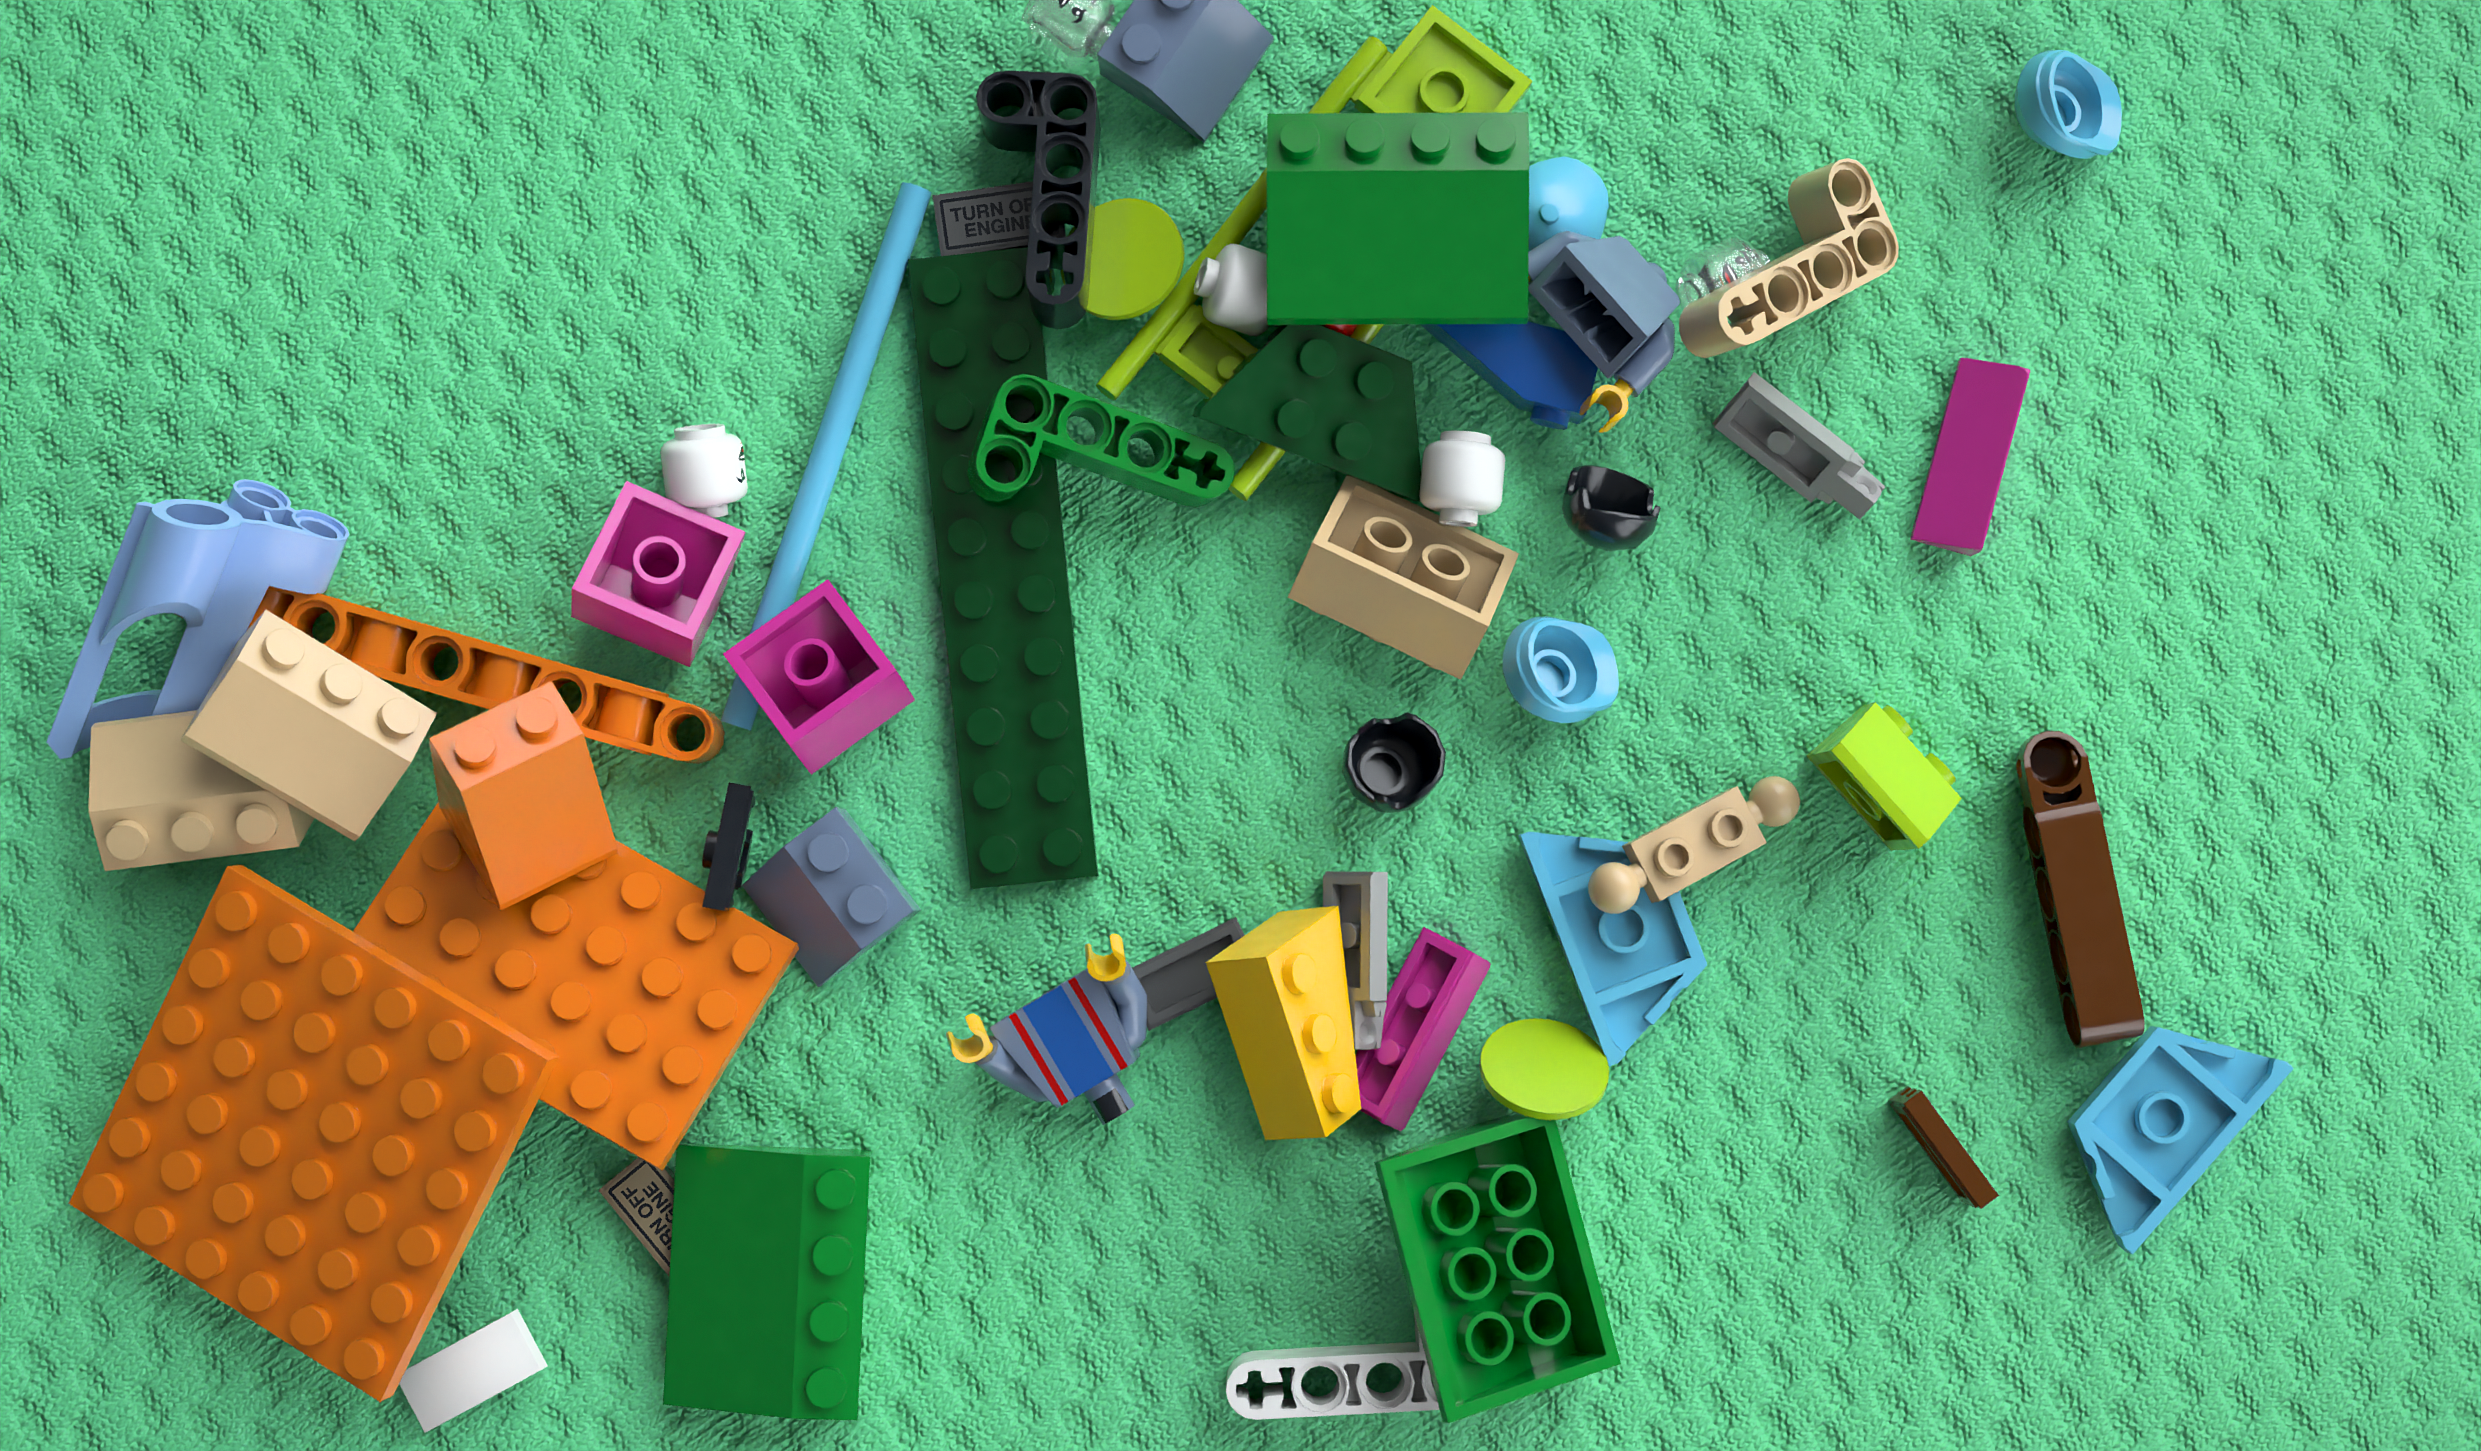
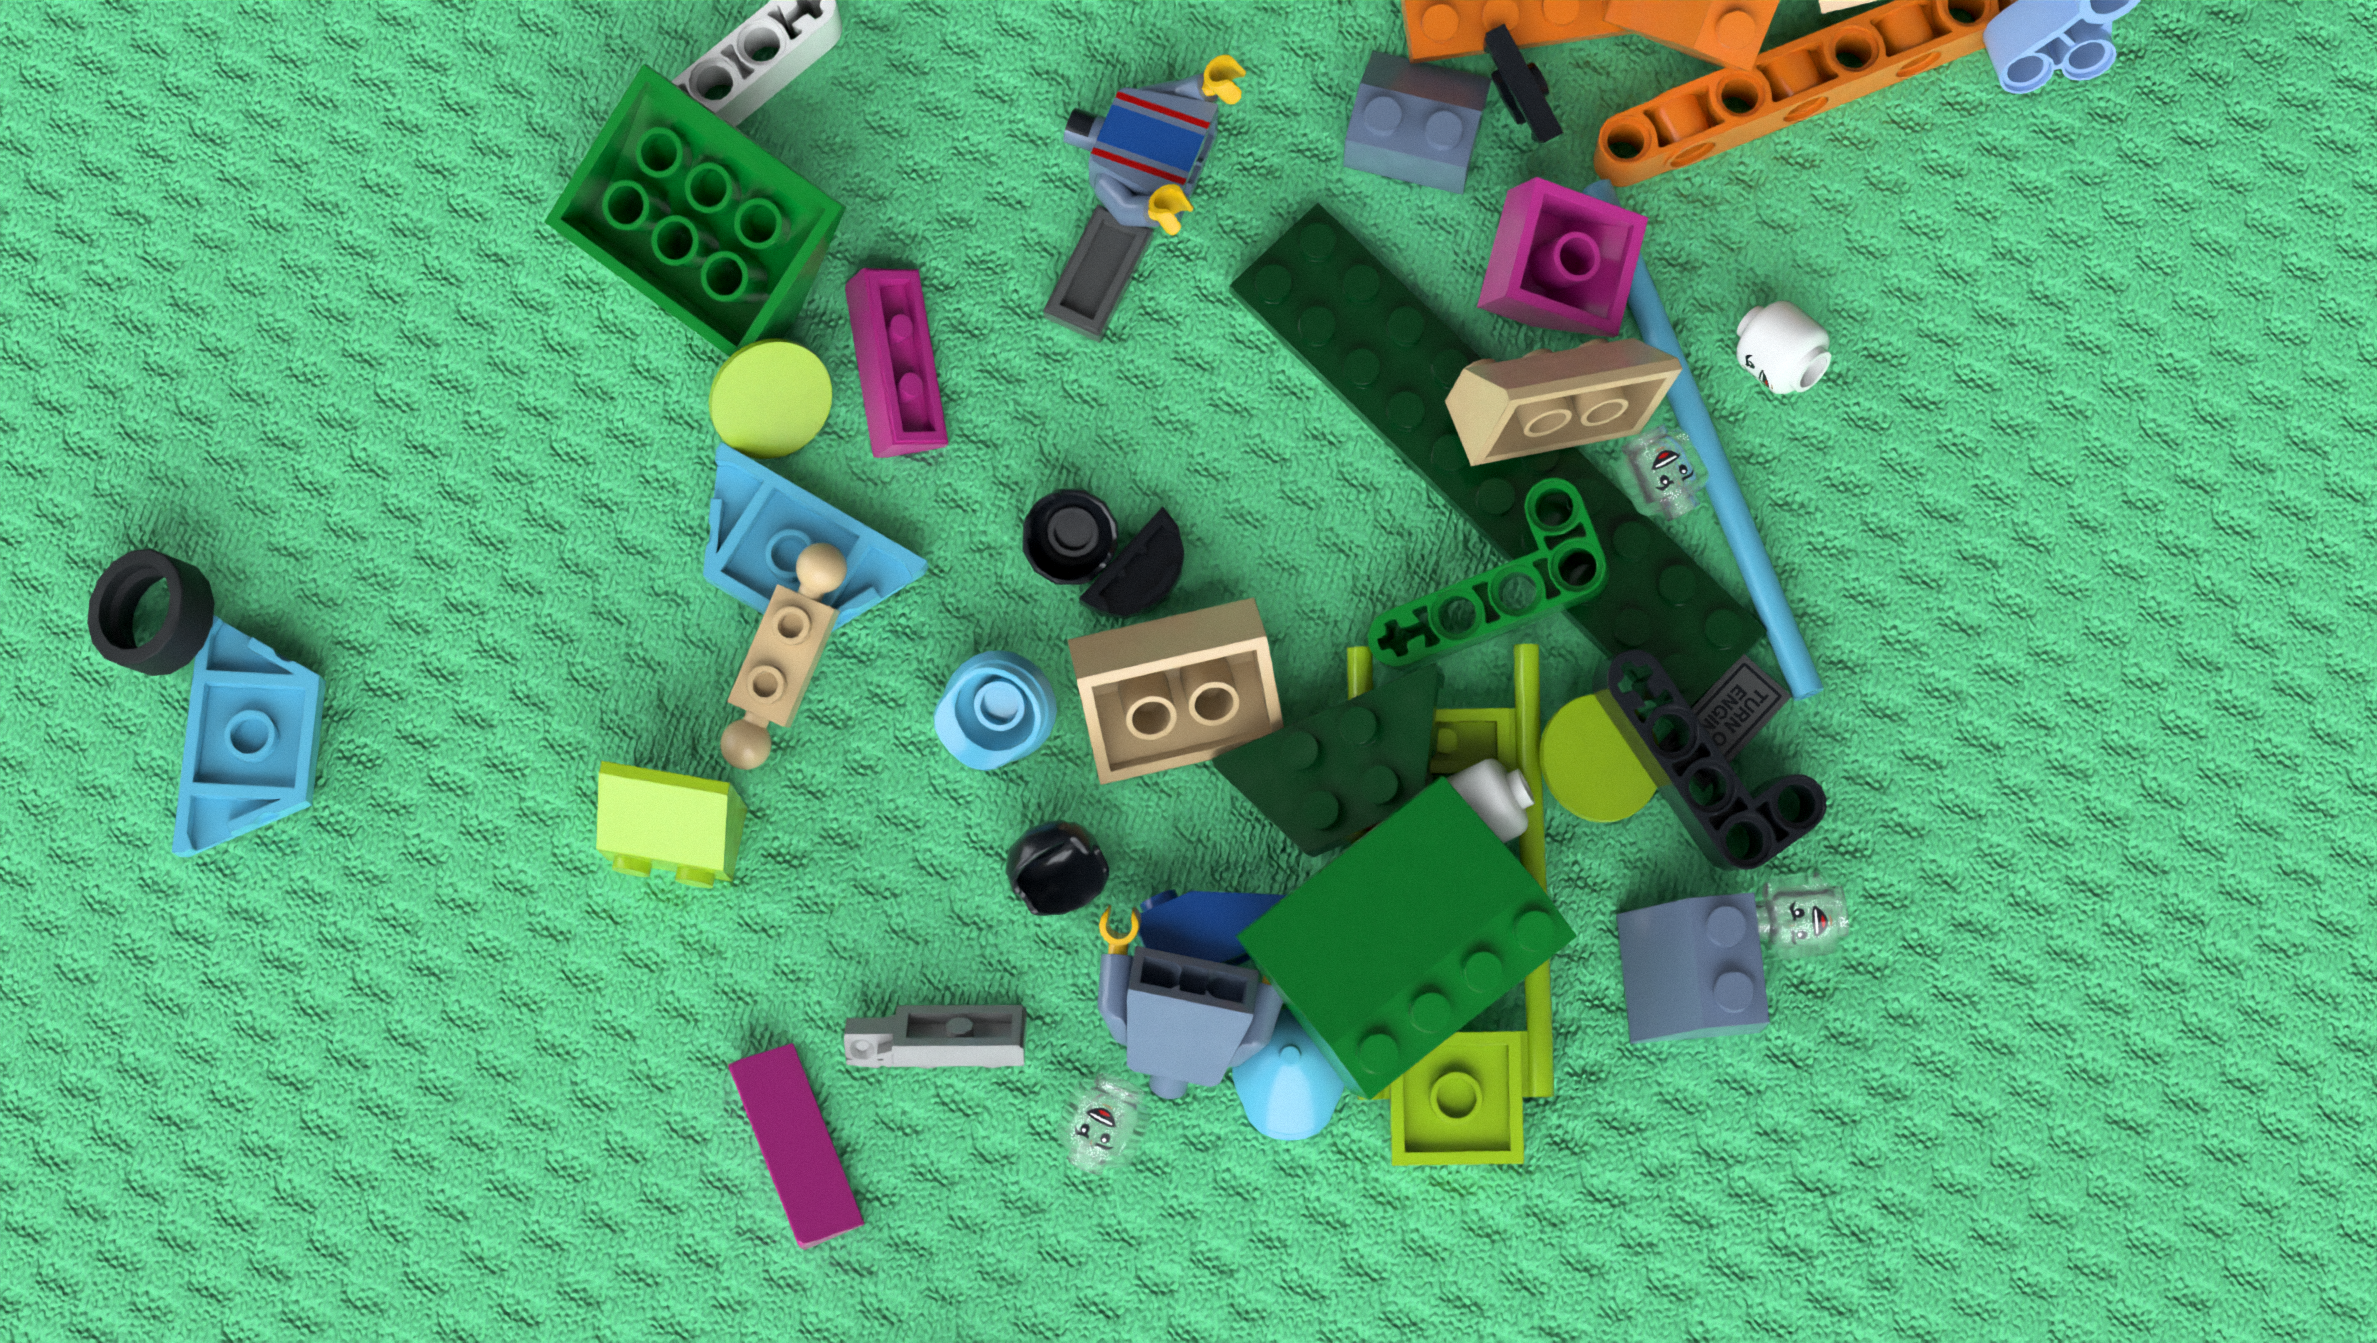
camera: 150 degrees right, 10 degrees down
(656, 574) = (1750, 241): dark pink slope -> none
(884, 446) = (1662, 472): none -> clear head
(918, 562) = (1558, 398): none -> tan slope
(1291, 1022) = (994, 284): yellow wedge -> none
(1356, 693) = (1141, 573): none -> black plate
(1363, 923) = (983, 377): light grey hinge -> none
(1462, 477) = (1191, 798): white head -> none
(1844, 247) = (1058, 1153): tan beam -> none
(1943, 1148) = (410, 580): reddish brown tile -> none
(2077, 892) = (450, 861): reddish brown piece -> none
(2206, 1306) = (116, 600): none -> black tyre

